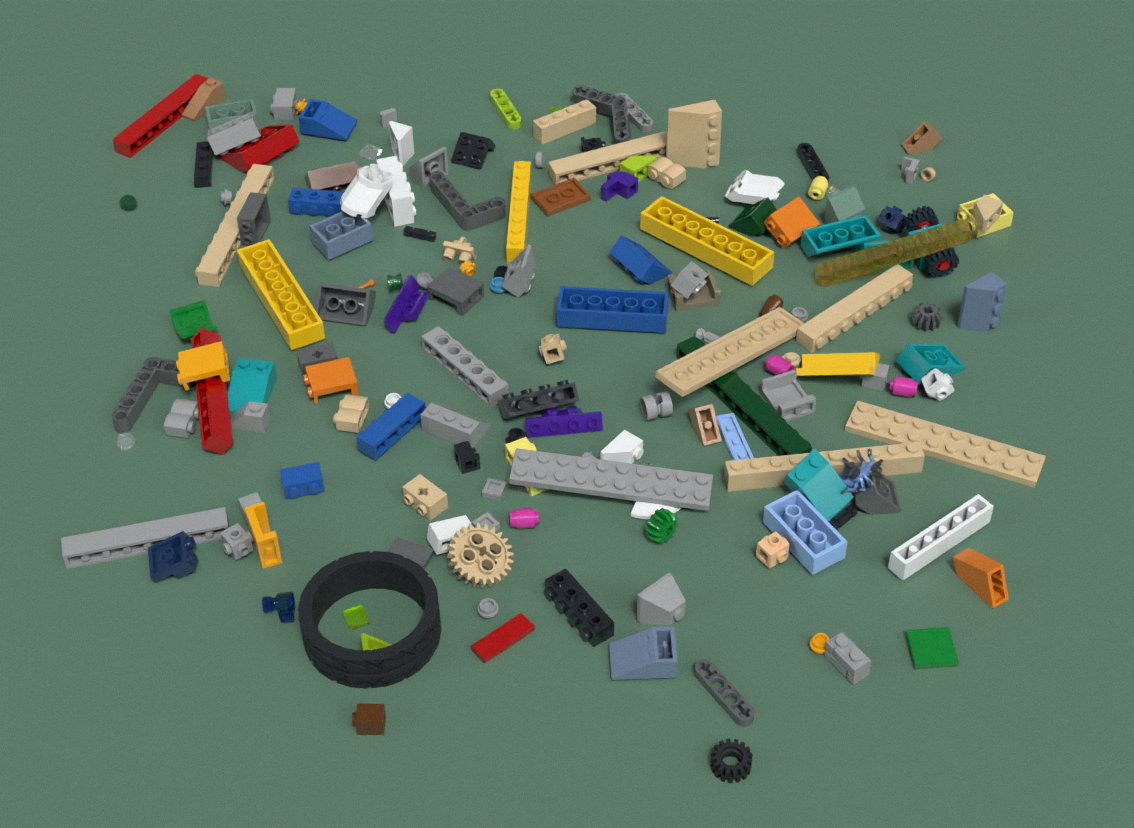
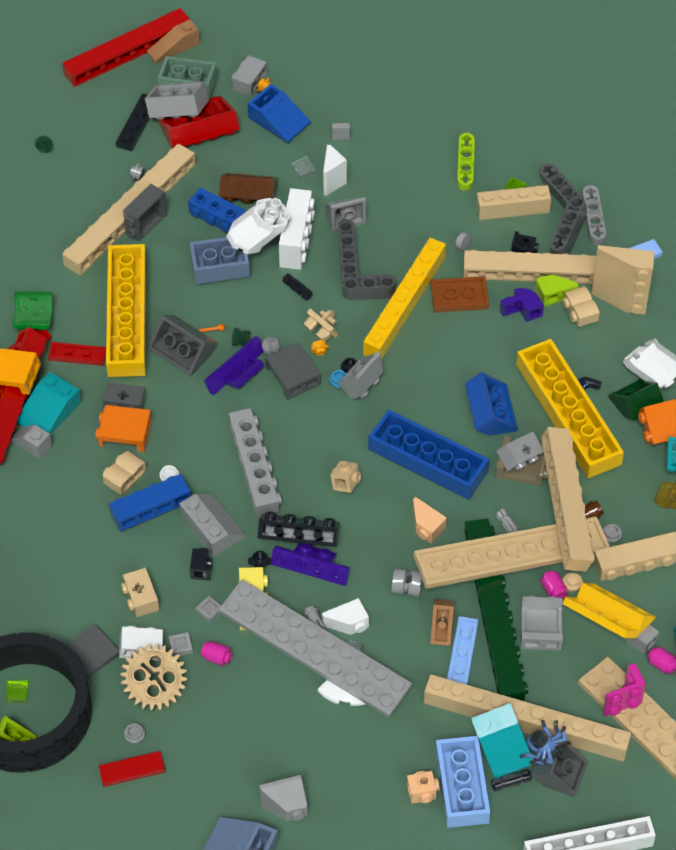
camera: 25 degrees right, 10 degrees up
(252, 342) = (77, 353): none -> red tile
(302, 480) = (42, 528): blue brick -> none
(472, 150) = (400, 204): black bracket -> none
(579, 607) = (213, 769): black brick -> none
(641, 357) = (428, 521): none -> light nougat slope
(661, 525) = (333, 717): green gear -> none
(752, 298) = (567, 499): none -> tan brick
(898, 411) = (627, 697): none -> dark pink bracket

